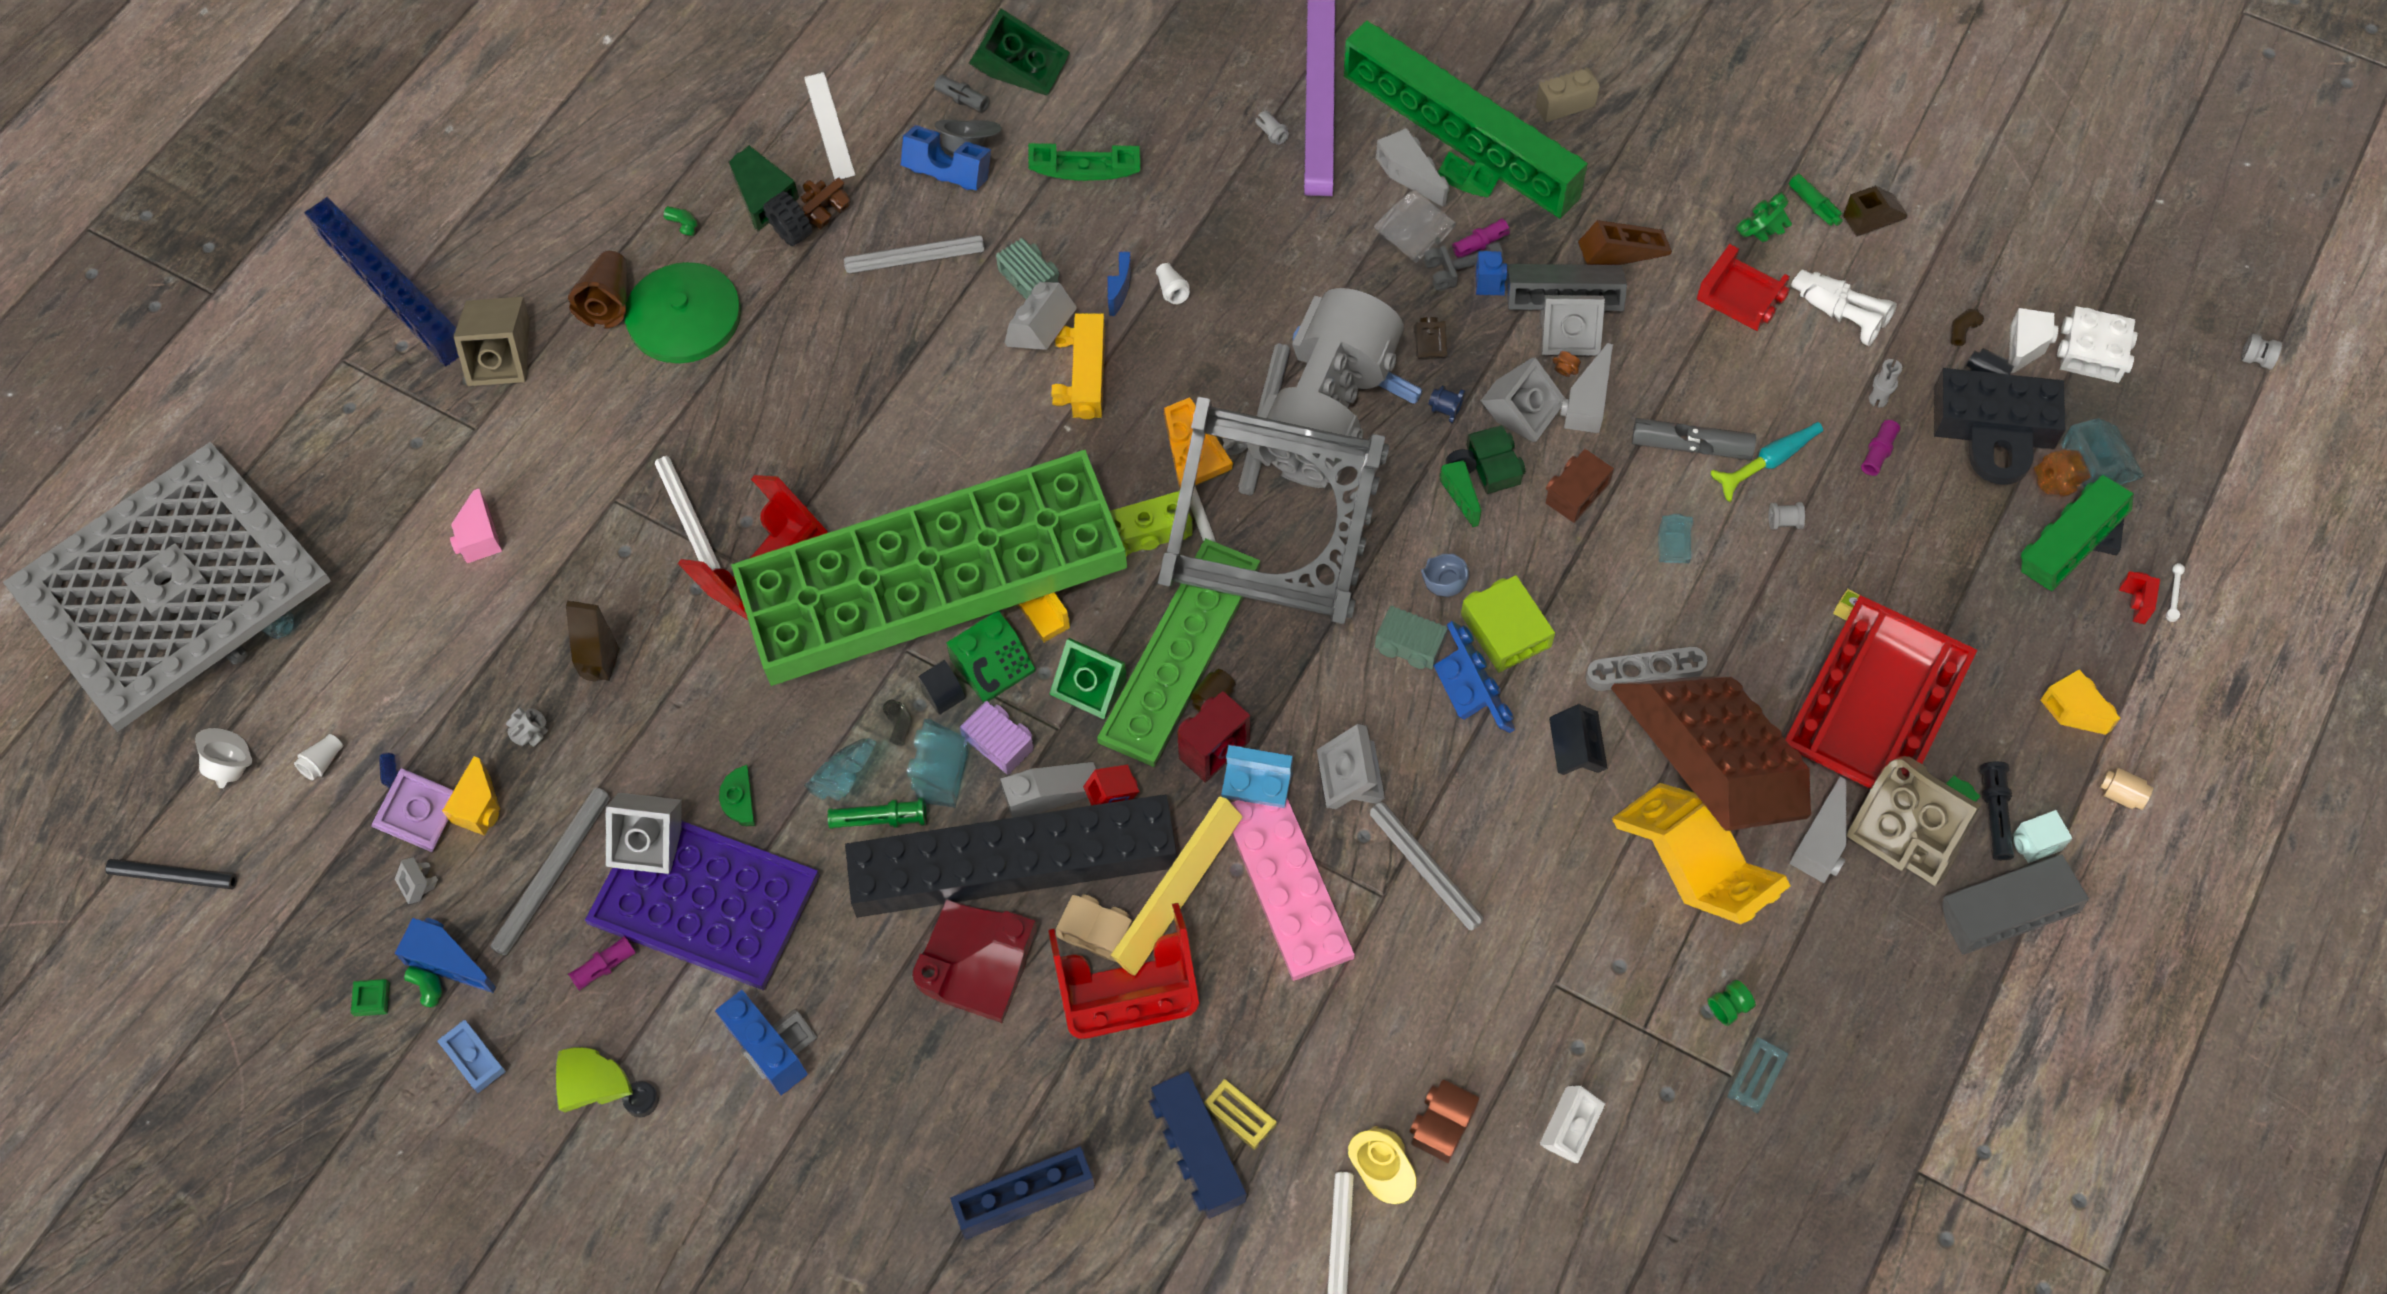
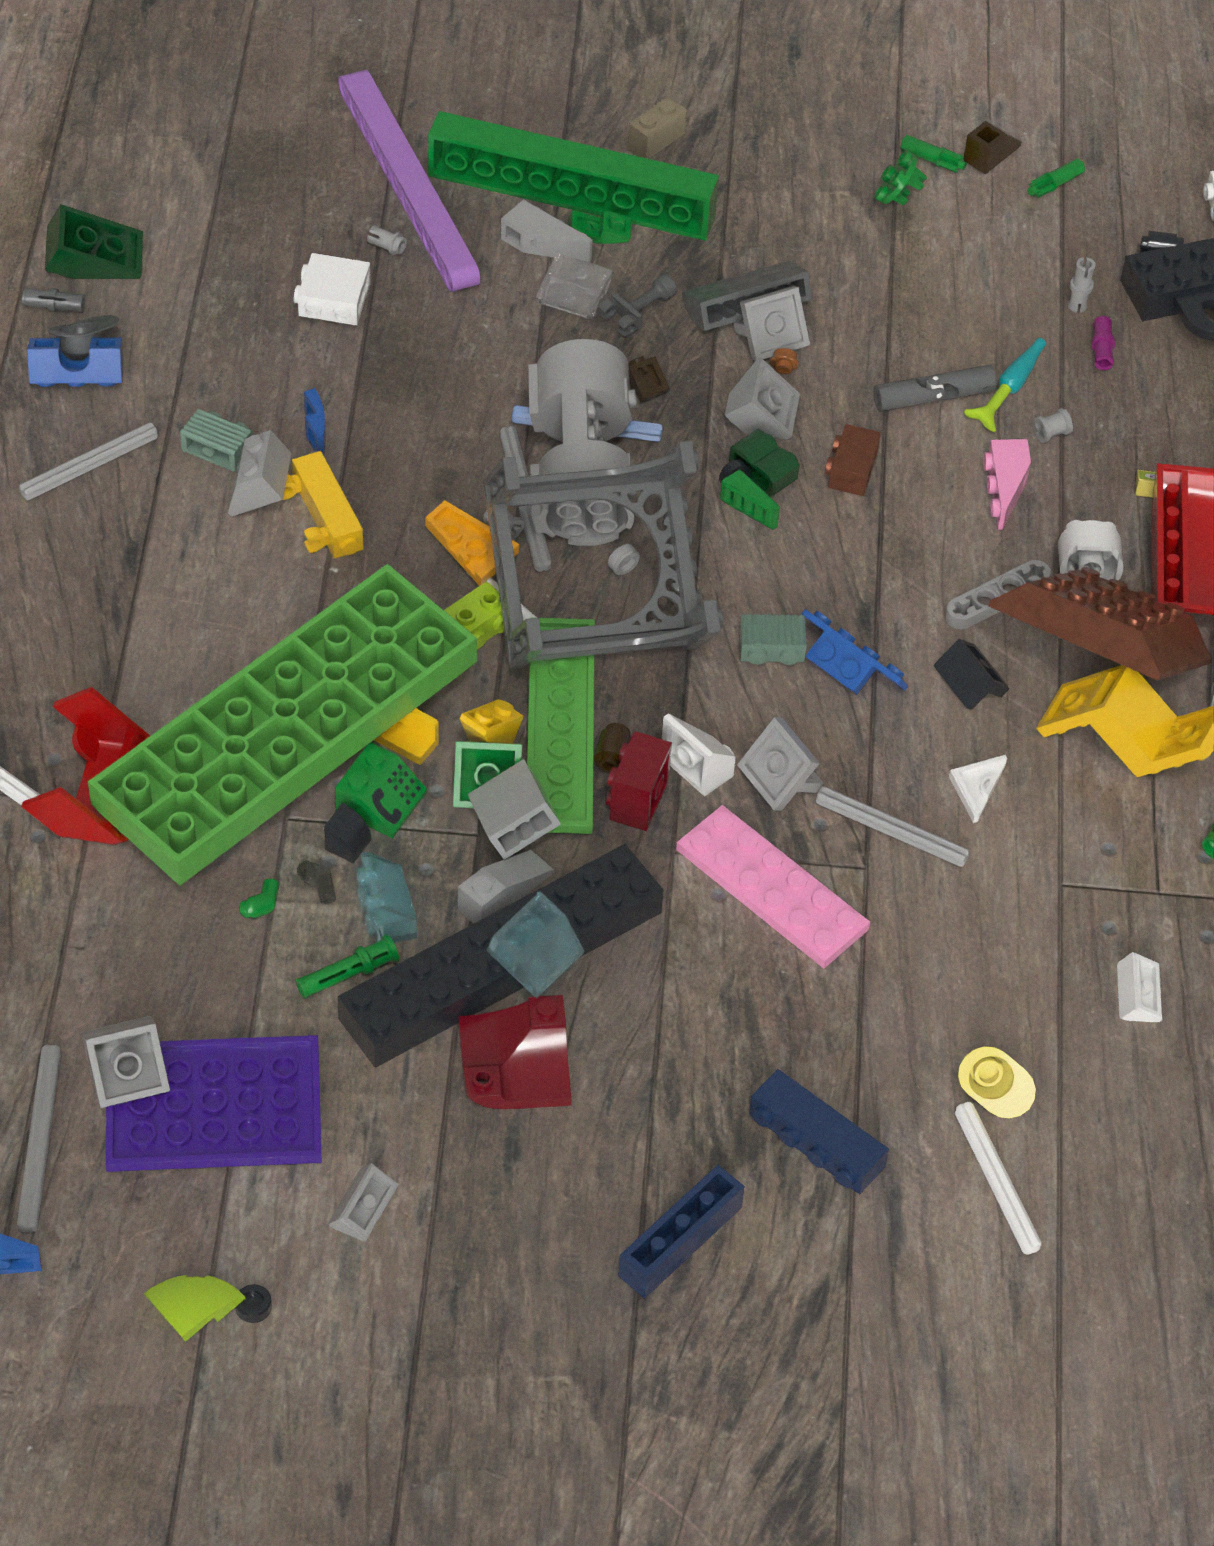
camera: 30 degrees left, 10 degrees down
(471, 1056) = (57, 1330): medium blue plate -> none
(601, 963) = (143, 1199): magenta pin -> none
(736, 797) = (194, 1005): green plate -> none
(761, 1042) = (377, 1207): blue arch -> none
(838, 774) = (294, 937): clear light blue slope -> none
(841, 724) = (261, 903): none -> green arm
(997, 736) = (428, 857): lavender brick -> none
(1027, 869) = (536, 945): none -> clear light blue slope
(1083, 165) = (218, 329): green slope -> none
(1086, 723) = (514, 809): none -> light grey brick
(1092, 926) = (616, 987): tan brick -> none
(1111, 785) = (563, 857): red brick -> none
(1112, 632) = (492, 722): none -> yellow slope
(1123, 1001) = (687, 1031): red windscreen -> none
(1173, 286) = (370, 408): white cone -> none
(1177, 885) = (677, 920): light yellow tile -> none
(1198, 160) = (333, 289): none -> white brick
(1257, 776) = (700, 798): dark azure bracket -> none
(1261, 1133) = (839, 1099): light yellow tile -> none
(1282, 727) = (698, 755): none -> white slope
(1318, 510) = (623, 559): none -> light grey tile
(1444, 1120) = (1028, 1026): copper brick -> none
(1445, 575) = (775, 574): sand blue hair -> none
(1446, 402) = (692, 427): dark blue brick -> none
(1481, 238) = (644, 277): magenta pin -> none
(1490, 273) = (671, 304): blue brick -> none
(1507, 623) = (854, 596): lime brick -> none
(1528, 851) = (976, 783): none -> white tile
(1588, 394) = (822, 387): light grey slope -> none
(1622, 243) = (778, 242): reddish brown slope -> none
(1675, 539) = (963, 477): clear light blue bracket -> none
(1719, 552) = (1008, 475): none -> bright pink slope
(1742, 290) = (910, 250): red panel -> none
(1751, 660) = (1091, 546): none -> white brick
(1832, 298) = (999, 231): white piece -> none
(1918, 263) = (1051, 180): none -> green piece
(1970, 317) = (1118, 216): dark brown arm -> none
(2030, 336) = (1182, 209): white slope -> none

